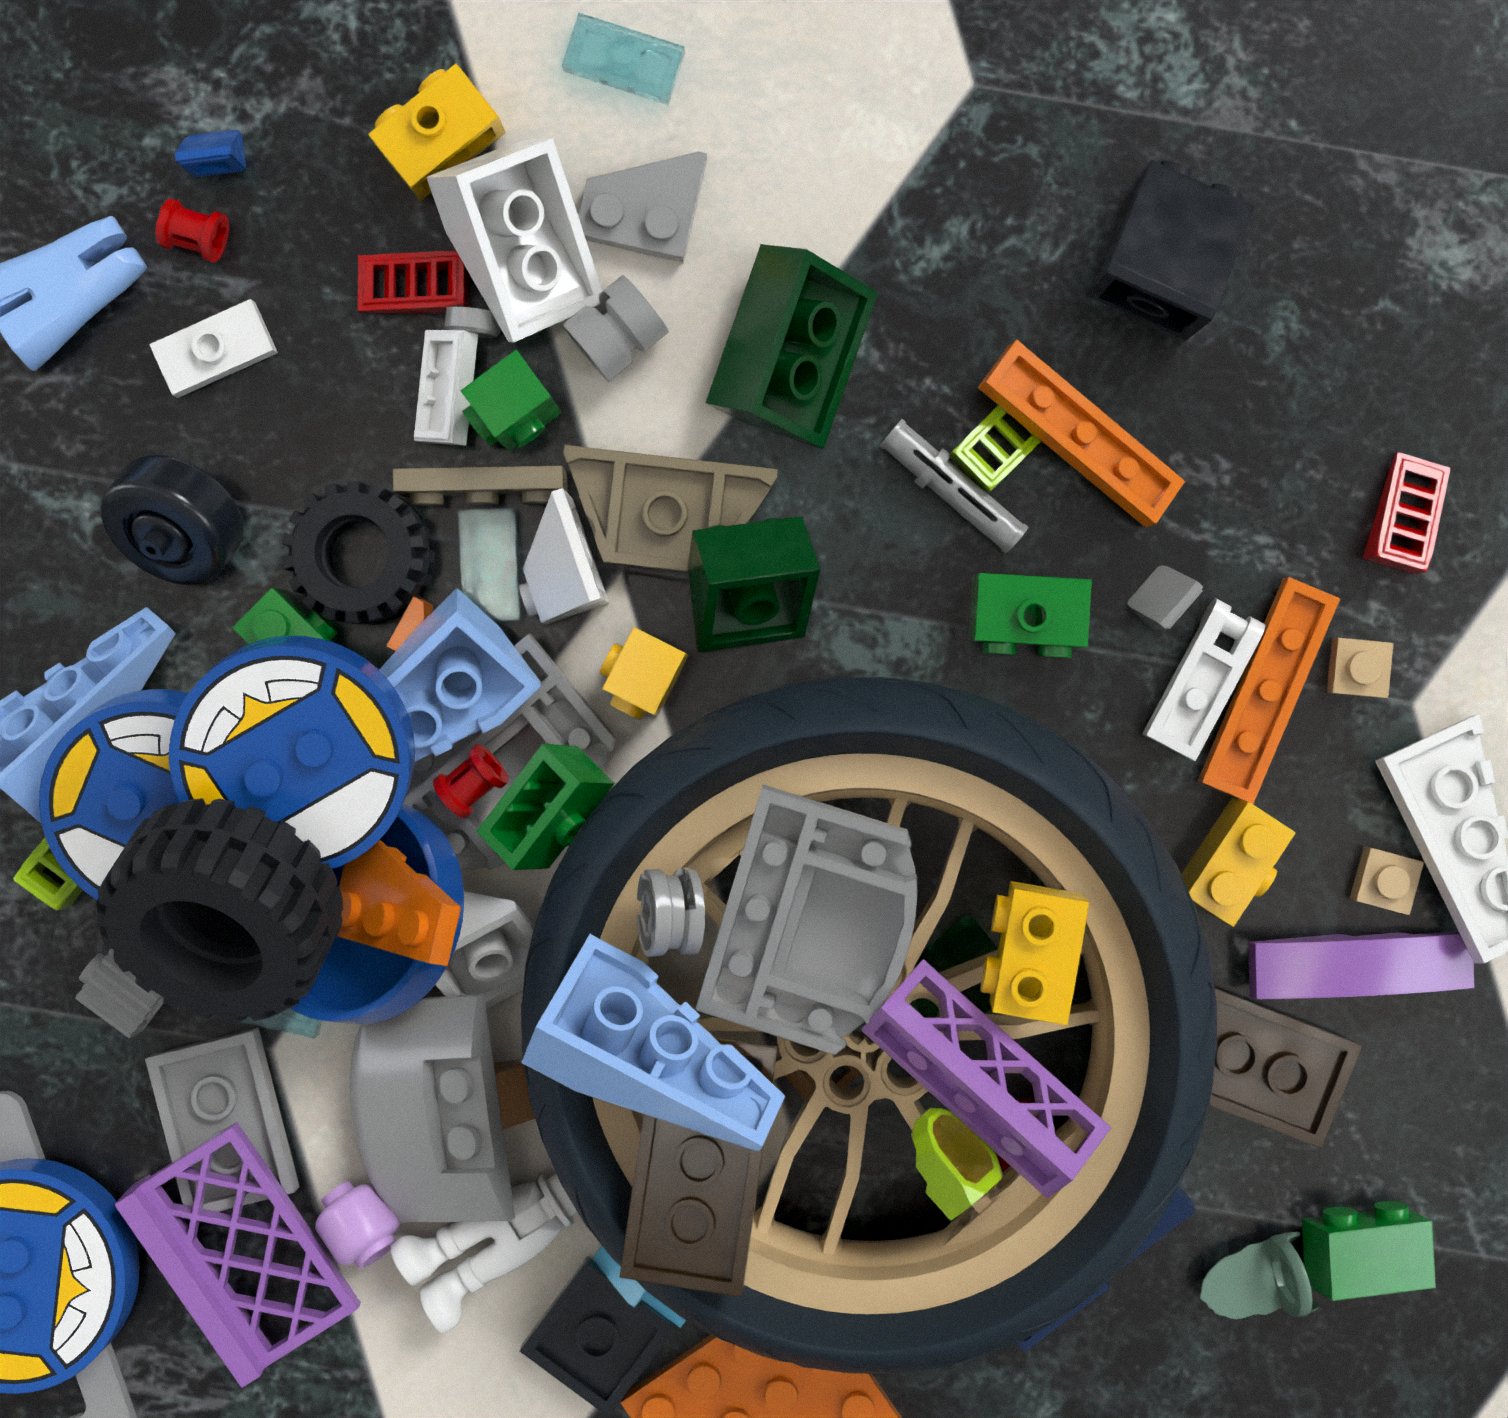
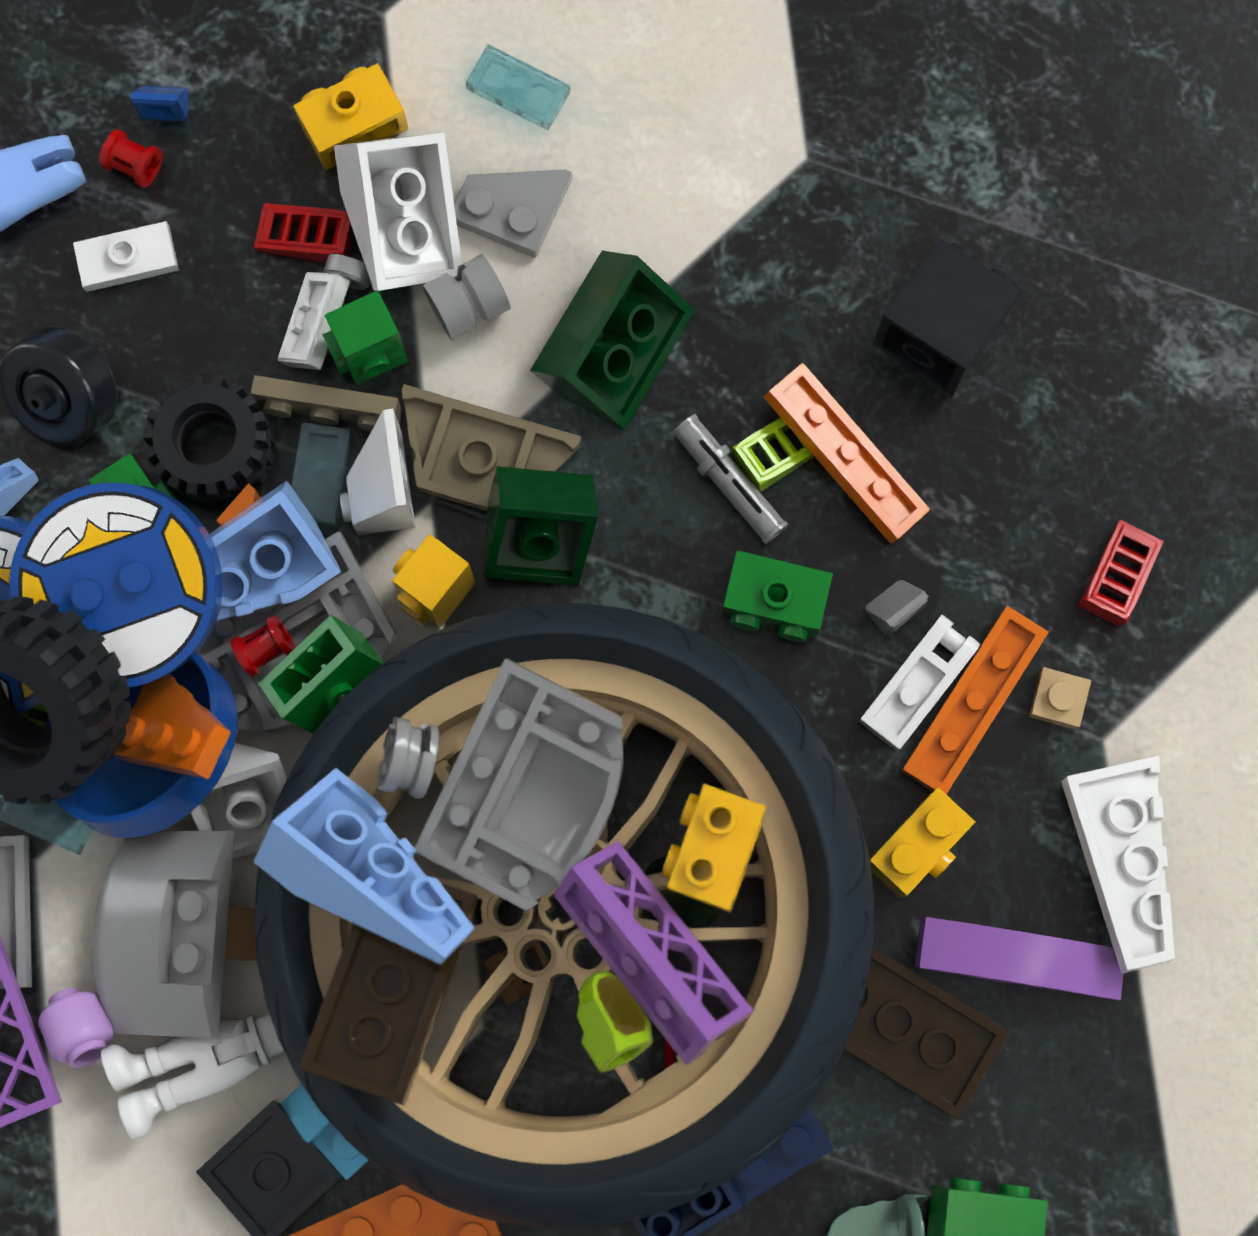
camera: 10 degrees right, 10 degrees down
(1386, 880) = (1056, 890): tan plate -> none

